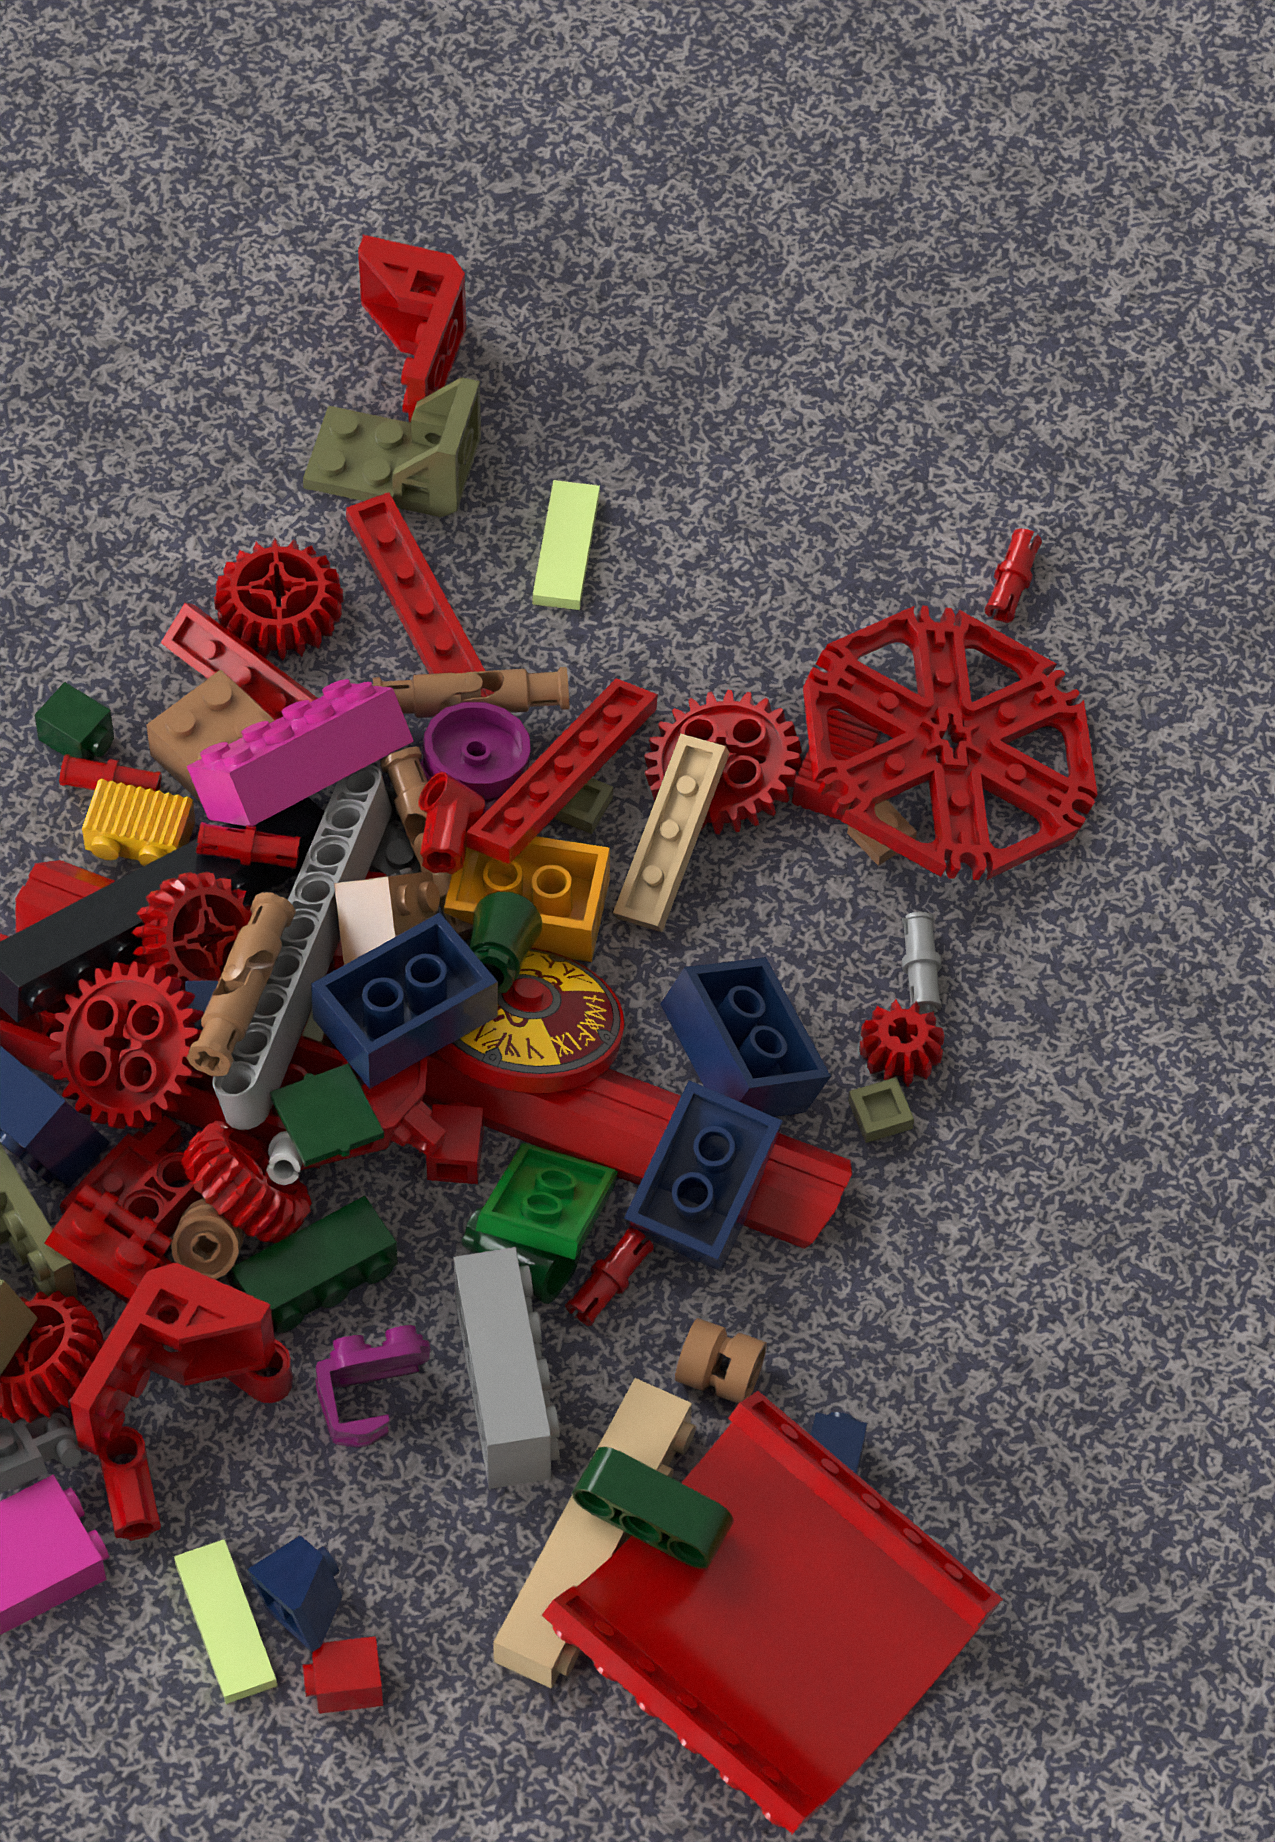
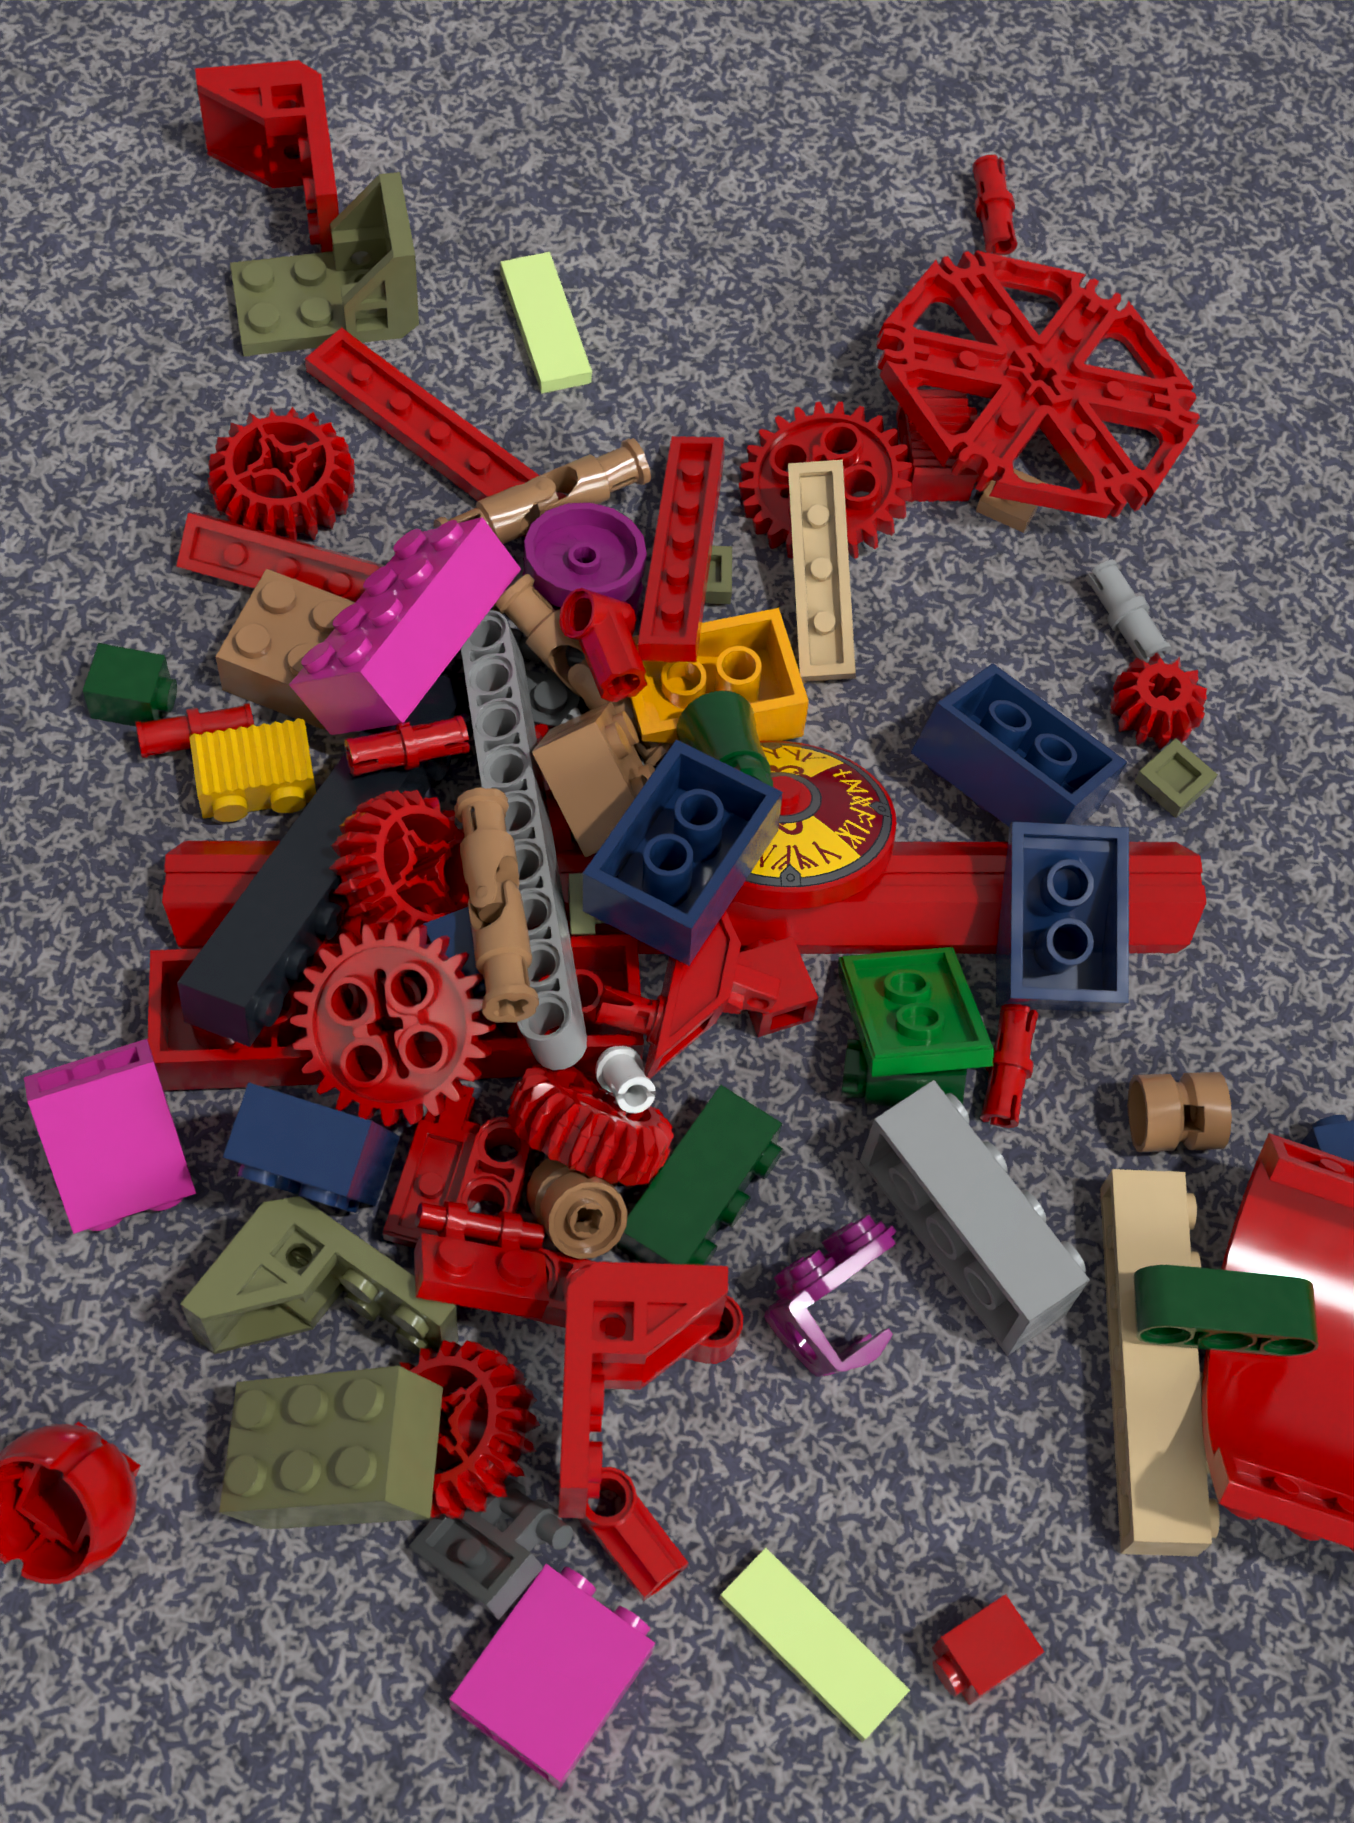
camera: 30 degrees left, 5 degrees up
(299, 1589) = (890, 1576): dark blue slope -> none
(326, 1115) = (657, 1014): dark green piece -> none

